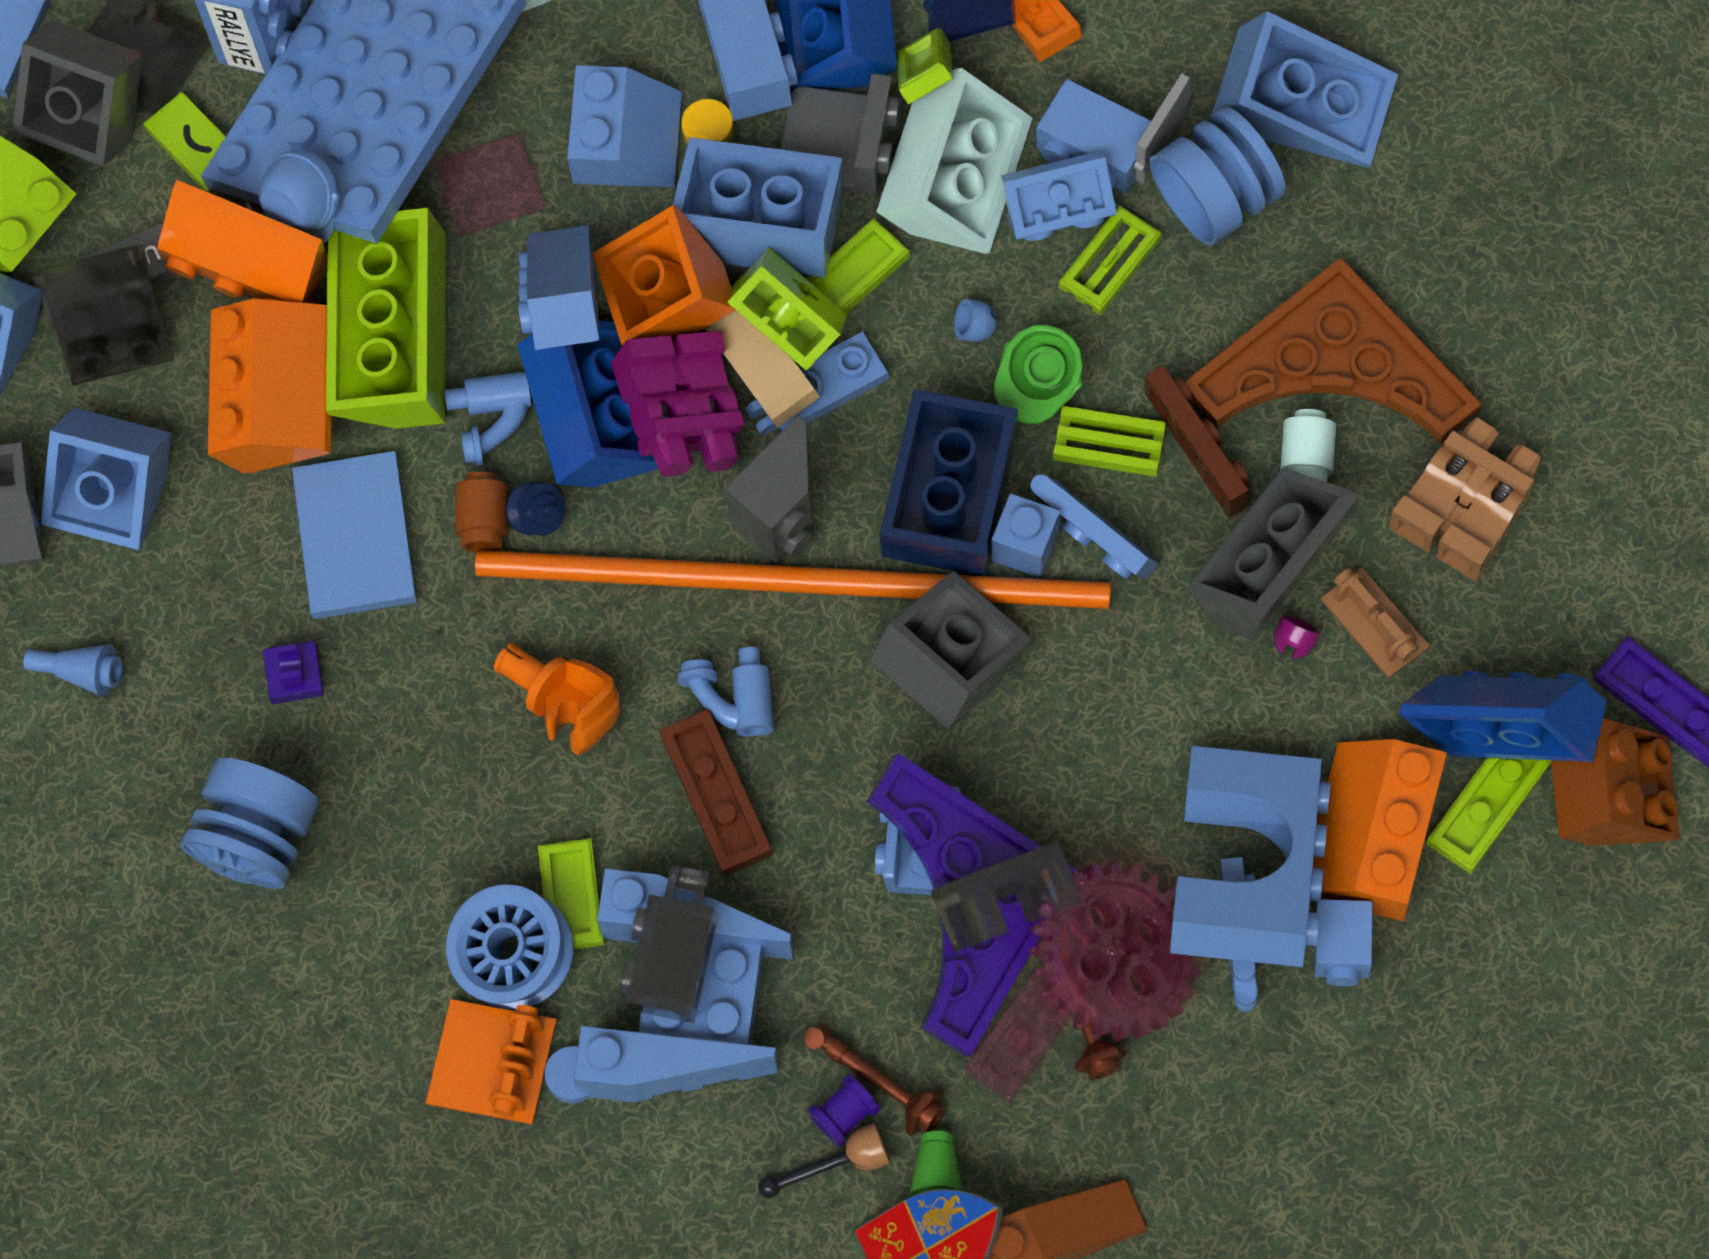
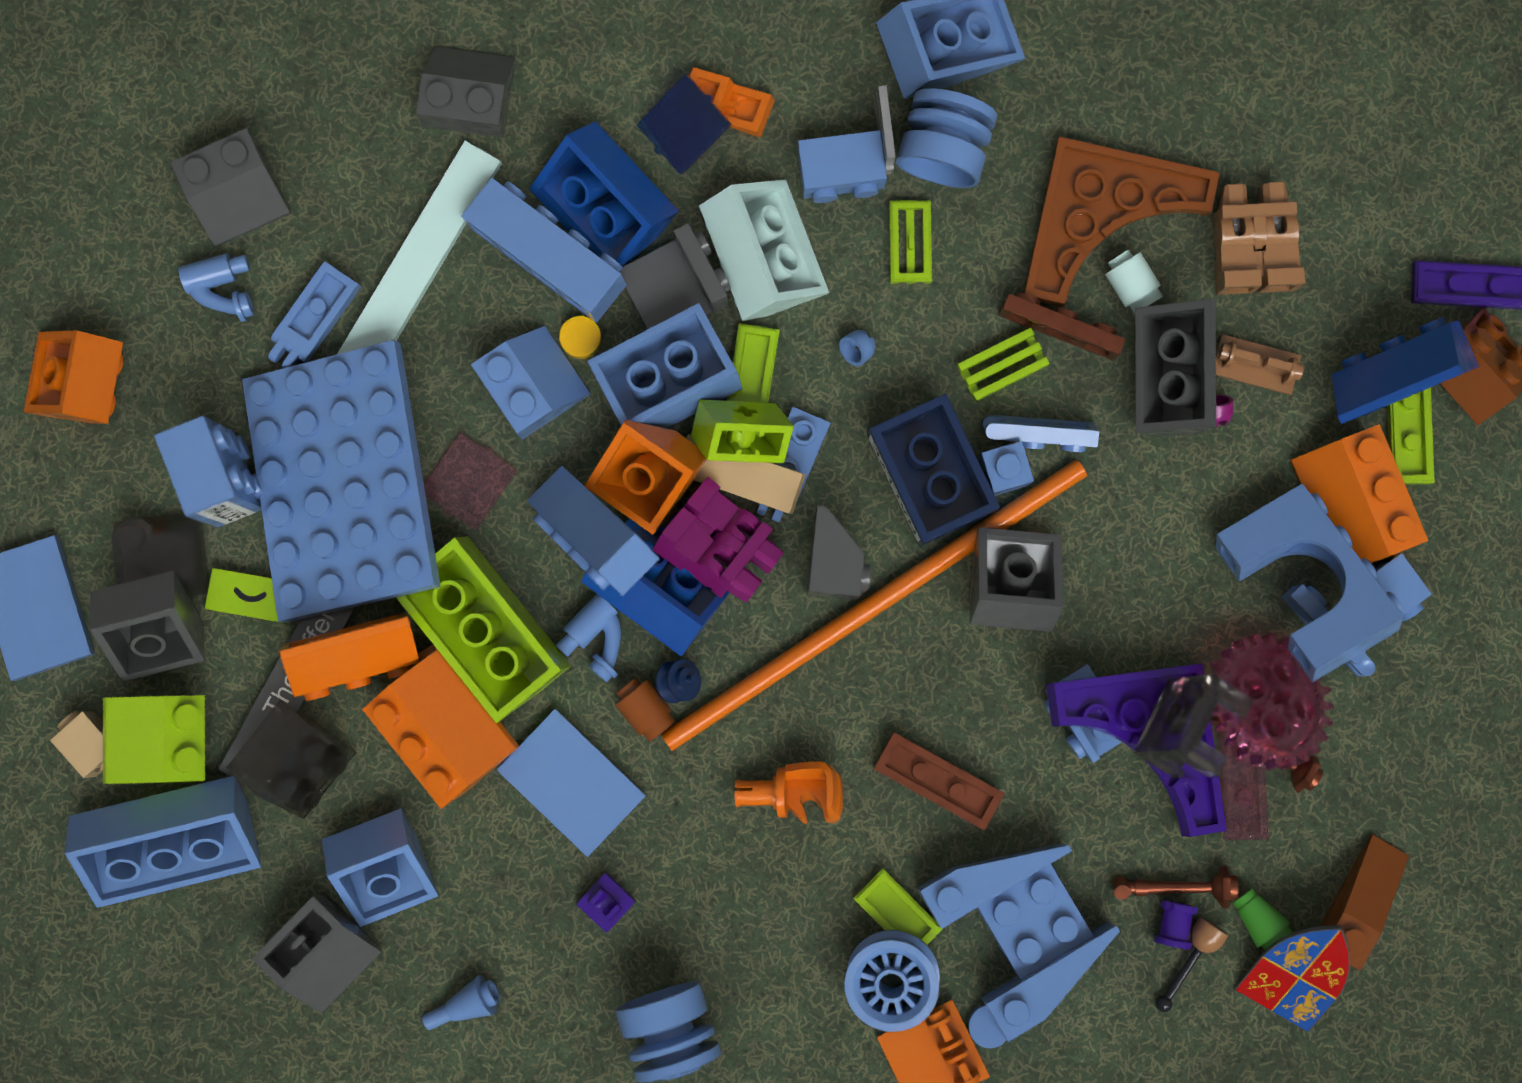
camera: 50 degrees left, 15 degrees up
(300, 193) = (364, 594): medium blue hat -> none
(671, 949) = (1011, 917): clear smoke brick -> none
(751, 688) = (908, 697): medium blue plant -> none
(924, 65) = (698, 197): lime tile -> none
(1038, 373) = (930, 355): bright green hat -> none
(1058, 196) = (854, 225): medium blue bracket -> none

